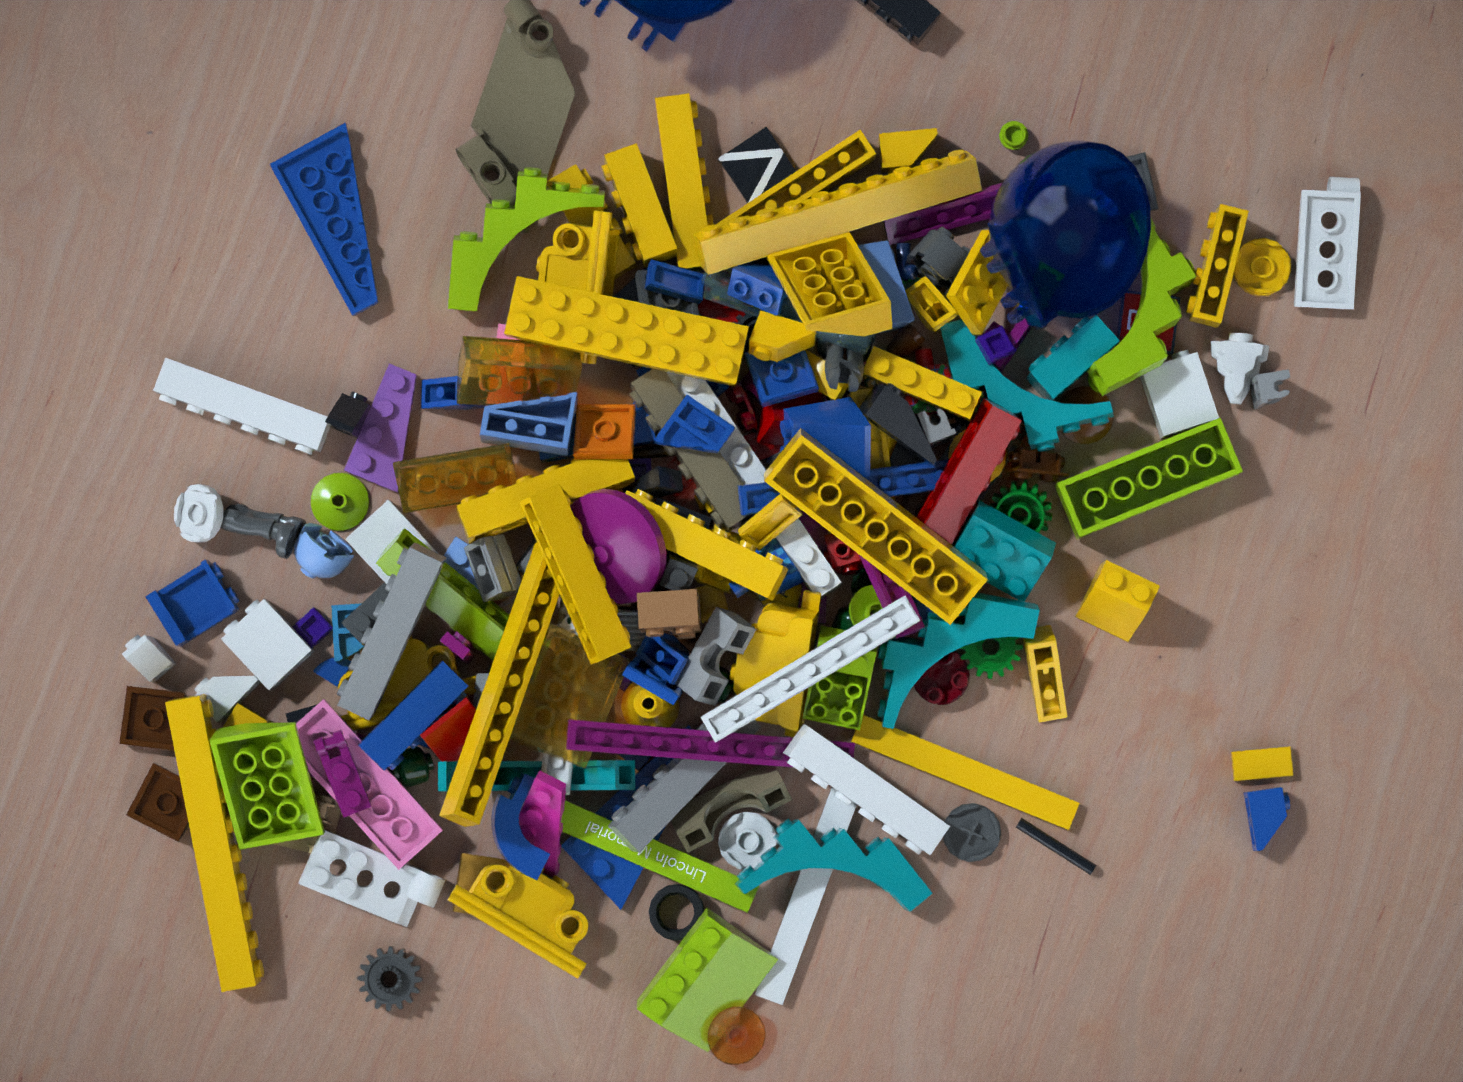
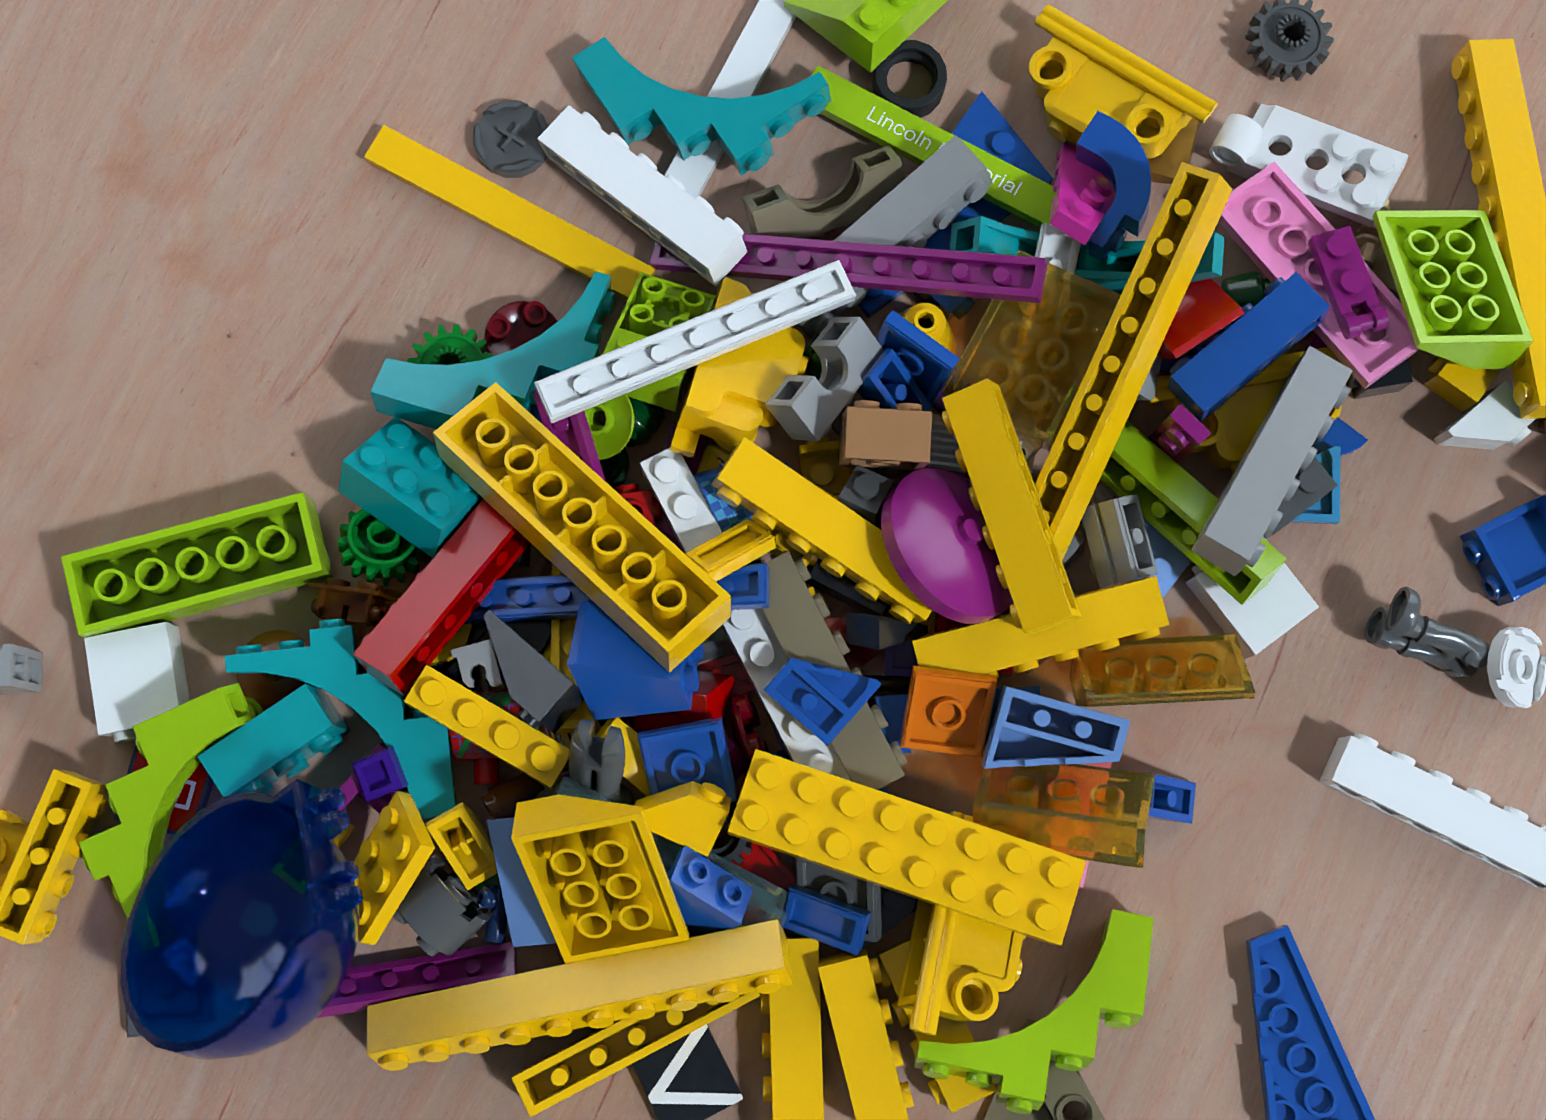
camera: 175 degrees right, 5 degrees down
(267, 644) = (1429, 481): white brick -> none
(313, 627) = (1363, 499): dark purple tile -> none
(321, 553) = (1350, 596): light blue cylinder -> none
(349, 414) = (1302, 780): black slope -> none
(350, 512) = (1297, 666): lime dish -> none
(384, 430) = (1248, 759): medium lavender wing -> none
(746, 839) = (807, 161): white tile -> none
(904, 147) = (473, 1082): yellow slope -> none
(1013, 135) = (313, 1084): lime plate -> none
(1045, 674) = (381, 321): yellow slope -> none
(1055, 846) = (404, 109): black bar -> none
(1117, 600) = (266, 406): yellow slope -> none
(1238, 363) = (48, 716): white rock -> none
(1262, 763) = (116, 182): yellow tile -> none
(1265, 814) = (121, 113): blue slope -> none

